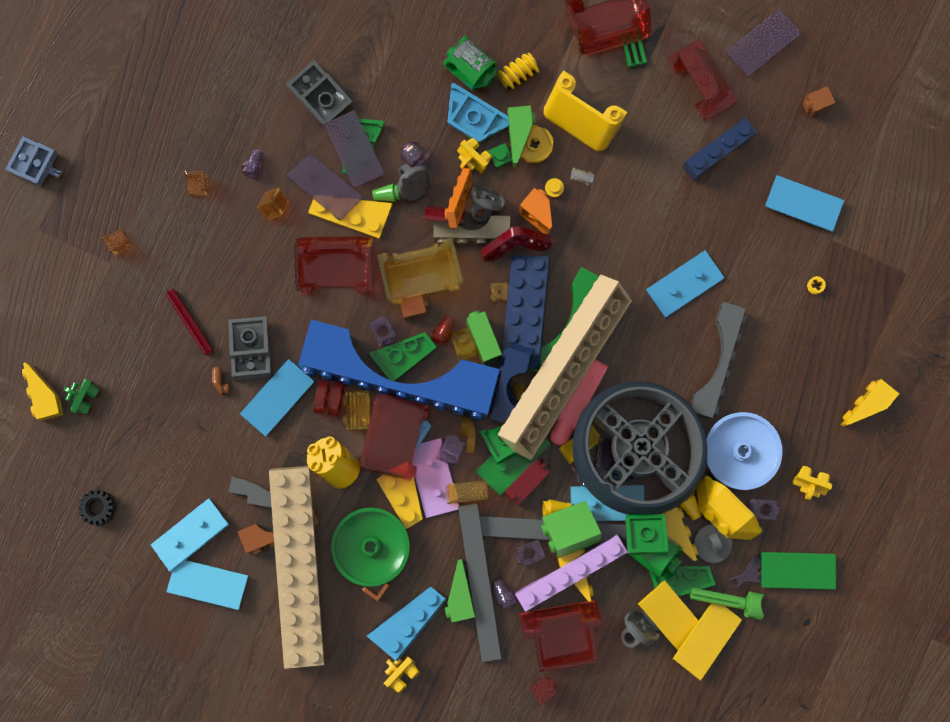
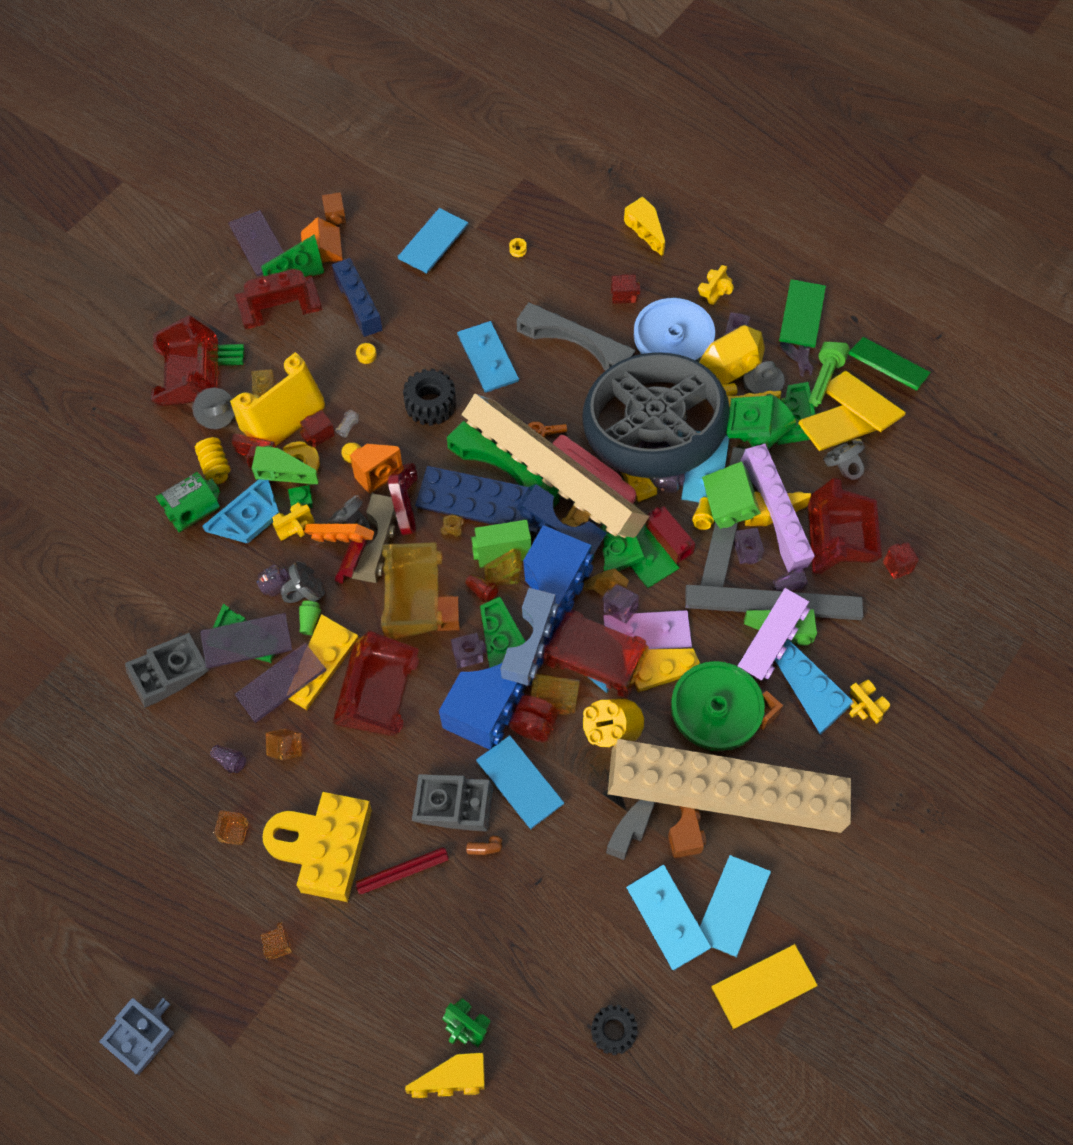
camera: 75 degrees left, 20 degrees down
(149, 616) = (764, 986): none -> yellow piece
(195, 259) = (326, 844): none -> yellow brick
(360, 377) = (520, 661): none -> sand blue arch
(439, 584) = (773, 635): none -> lavender brick
(466, 492) = (671, 594): clear yellow brick -> none
(538, 104) = (247, 446): none -> clear red slope
(569, 56) = (213, 408): none -> dark grey tile
(570, 150) = (316, 428): none -> clear red brick
(603, 93) = (262, 382): none -> clear yellow brick
(611, 347) = (547, 430): none -> orange plate
(623, 226) = (429, 410): none -> black tyre
(663, 173) = (366, 353): none -> yellow tile
(742, 82) = (303, 257): none -> green wing
(757, 660) = (889, 363): none -> green piece
(777, 100) = (327, 239): none -> orange slope
(787, 395) = (624, 289): none -> clear red brick

